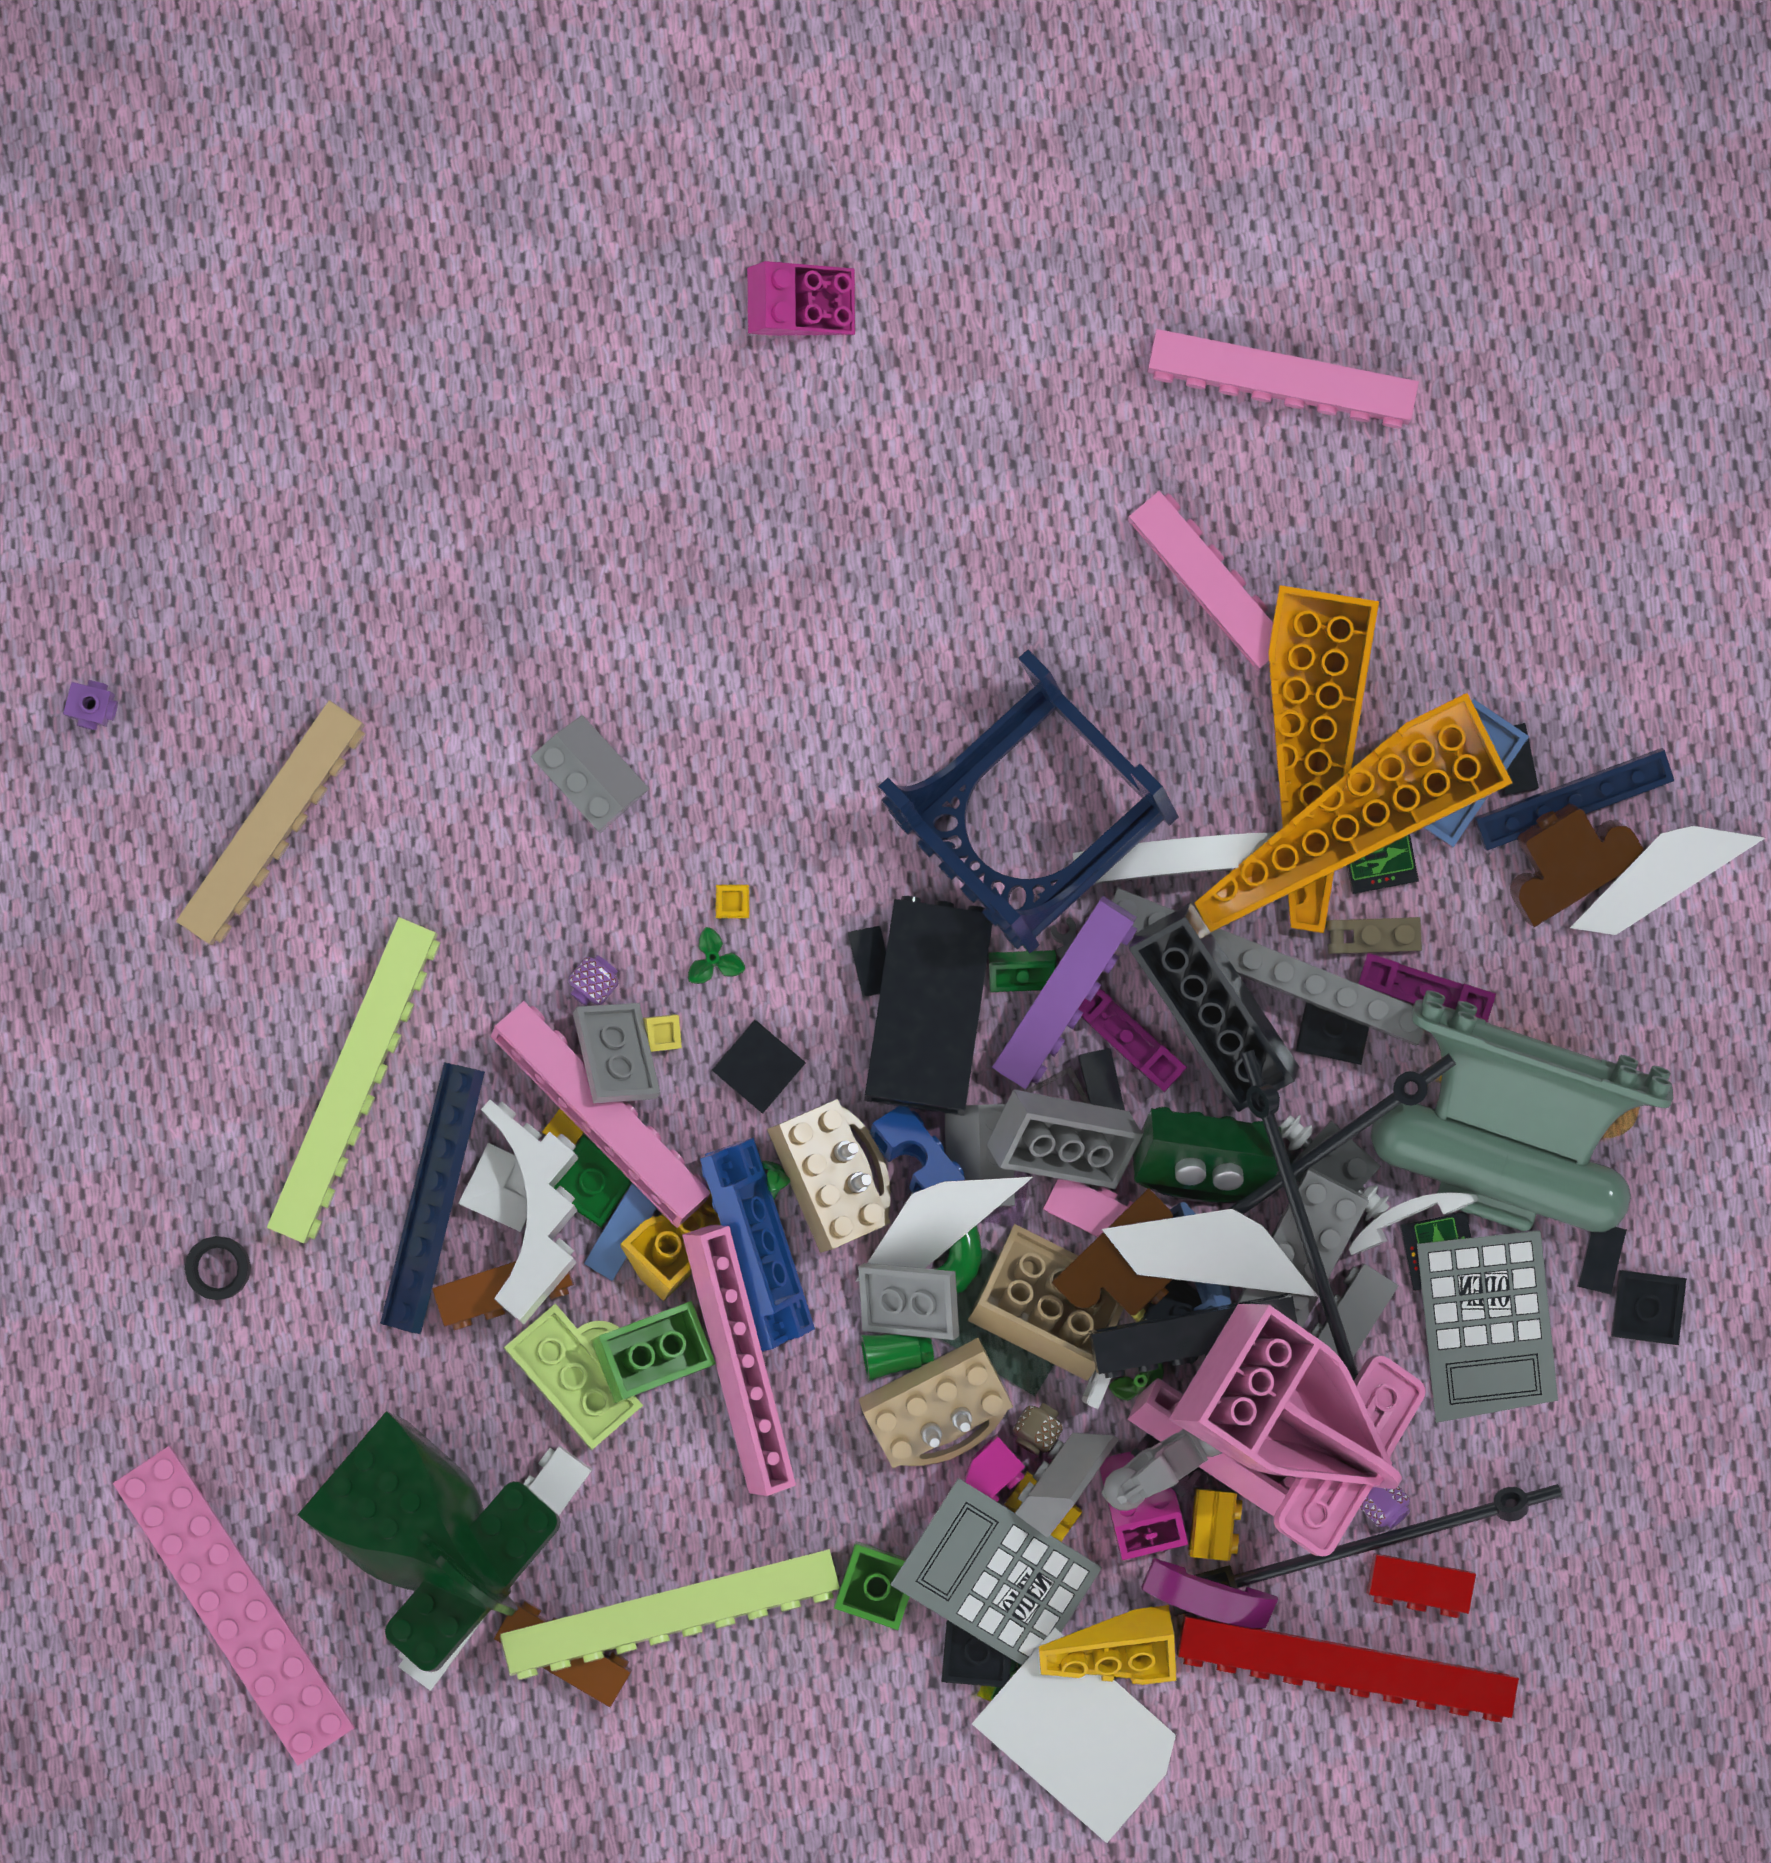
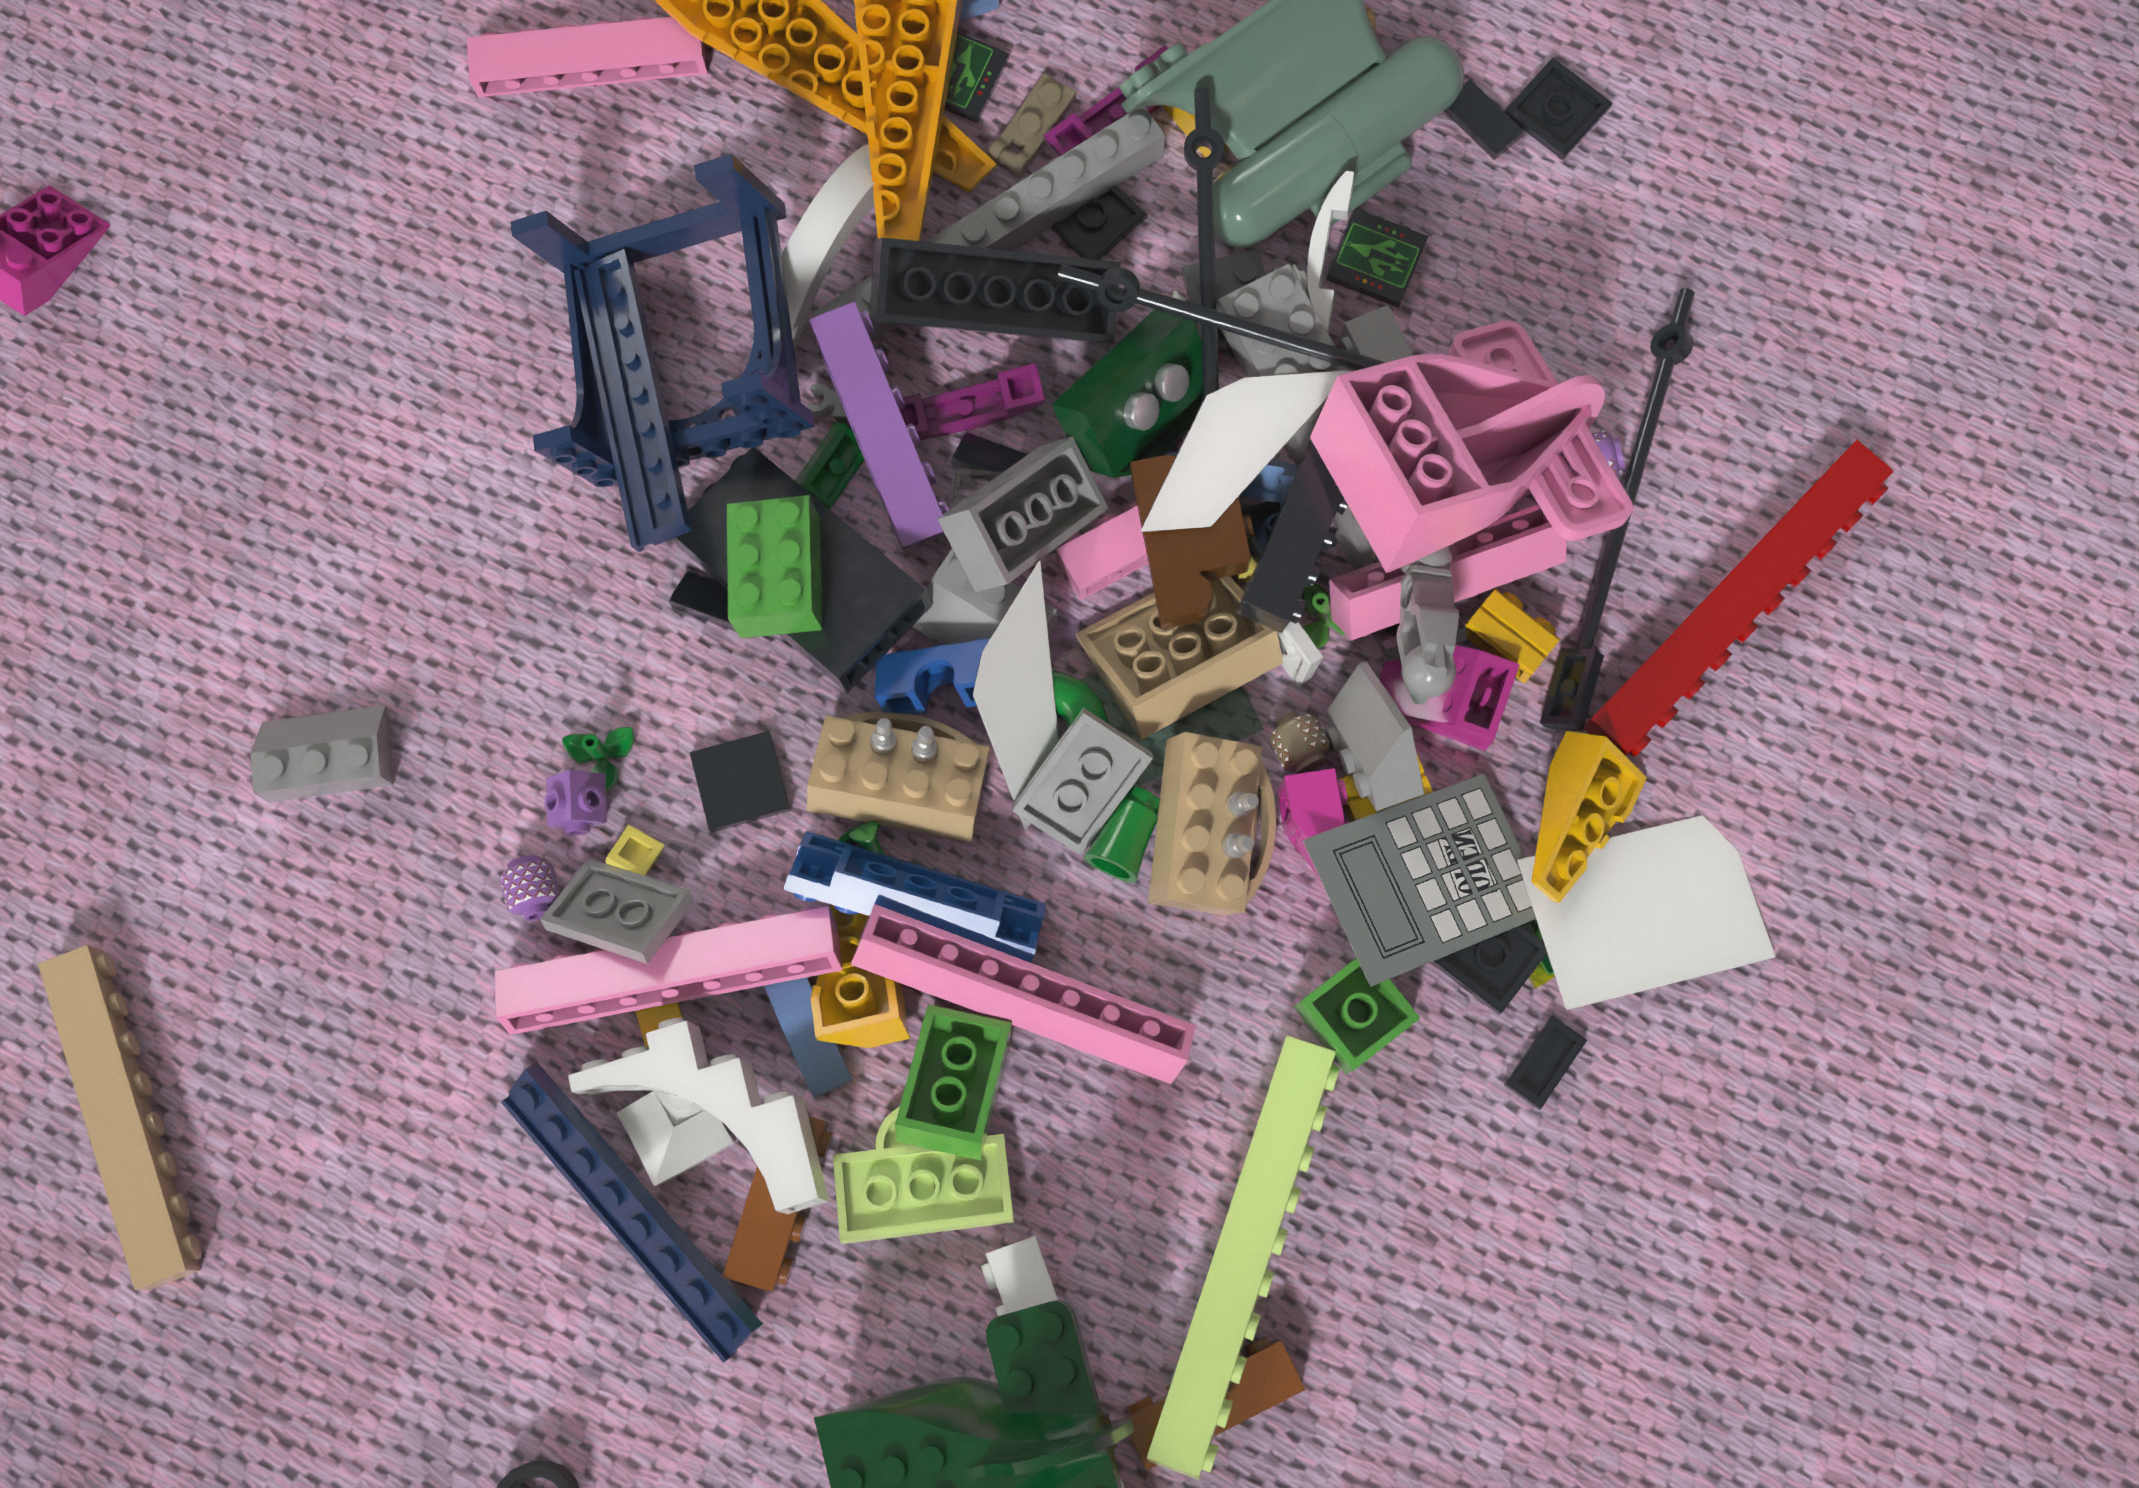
camera: 55 degrees left, 10 degrees down
(352, 1081) = (449, 1216): yellowish green brick -> none
(594, 1182) = (738, 1025): green tile -> none
(669, 970) = (576, 801): none -> medium lavender brick
(732, 901) = (557, 697): yellow tile -> none
(911, 998) = (774, 567): none -> bright green brick
(930, 1732) = (1545, 1062): none -> black tile
(966, 813) = (632, 402): none -> dark blue plate
(1208, 1598) = (1582, 685): magenta slope -> none
(1420, 1585) = (1700, 477): red brick -> none
(1487, 1324) = (1476, 254): sticker -> none

